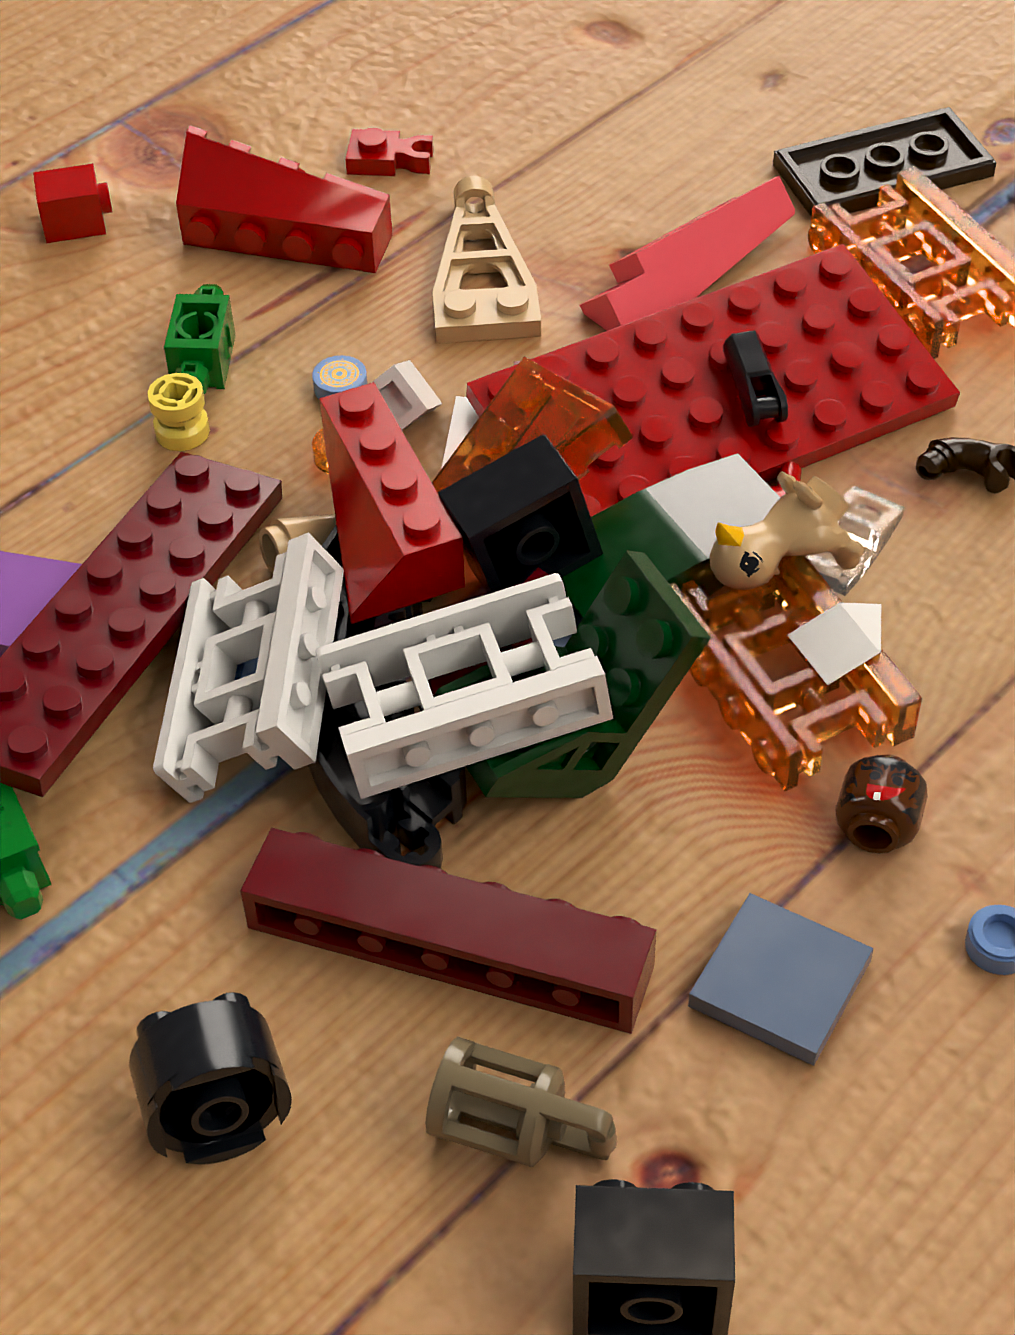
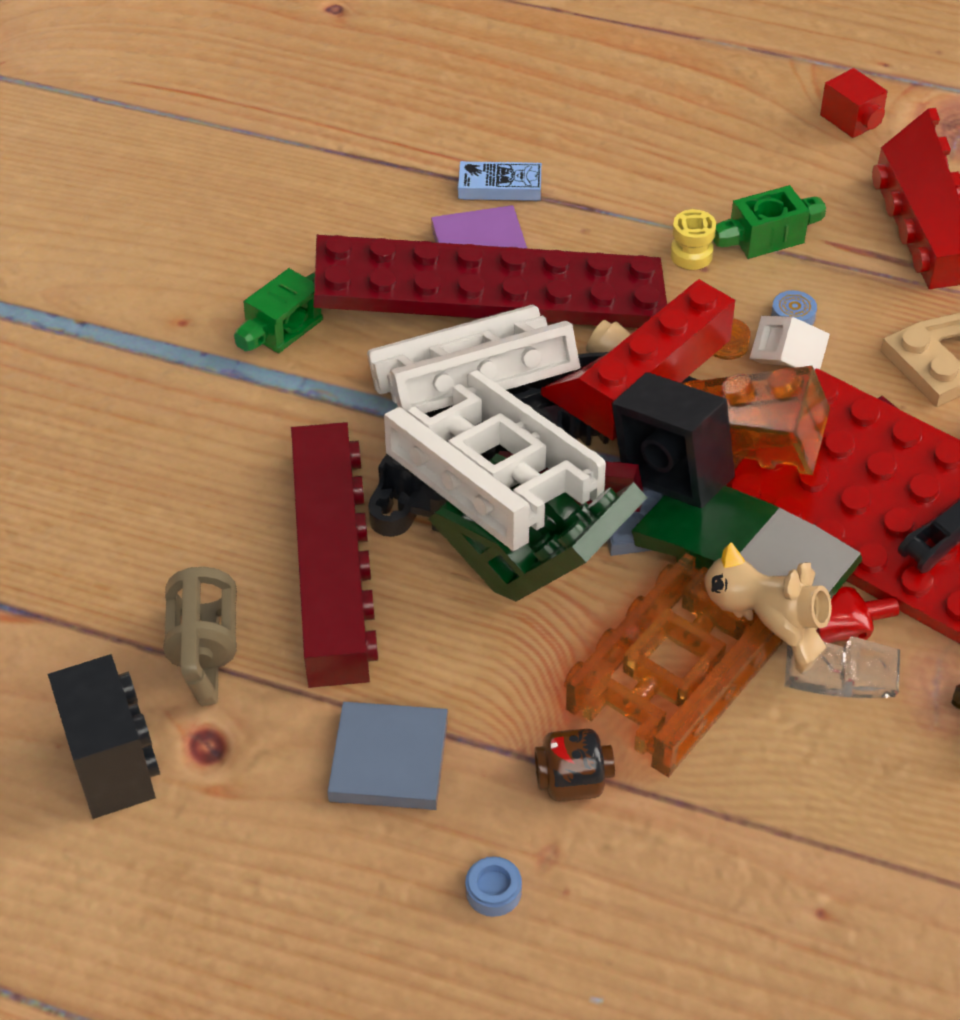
camera: 65 degrees right, 0 degrees up
(208, 1079) = (150, 469): black brick -> none
(840, 639) = (709, 680): white sticker -> none

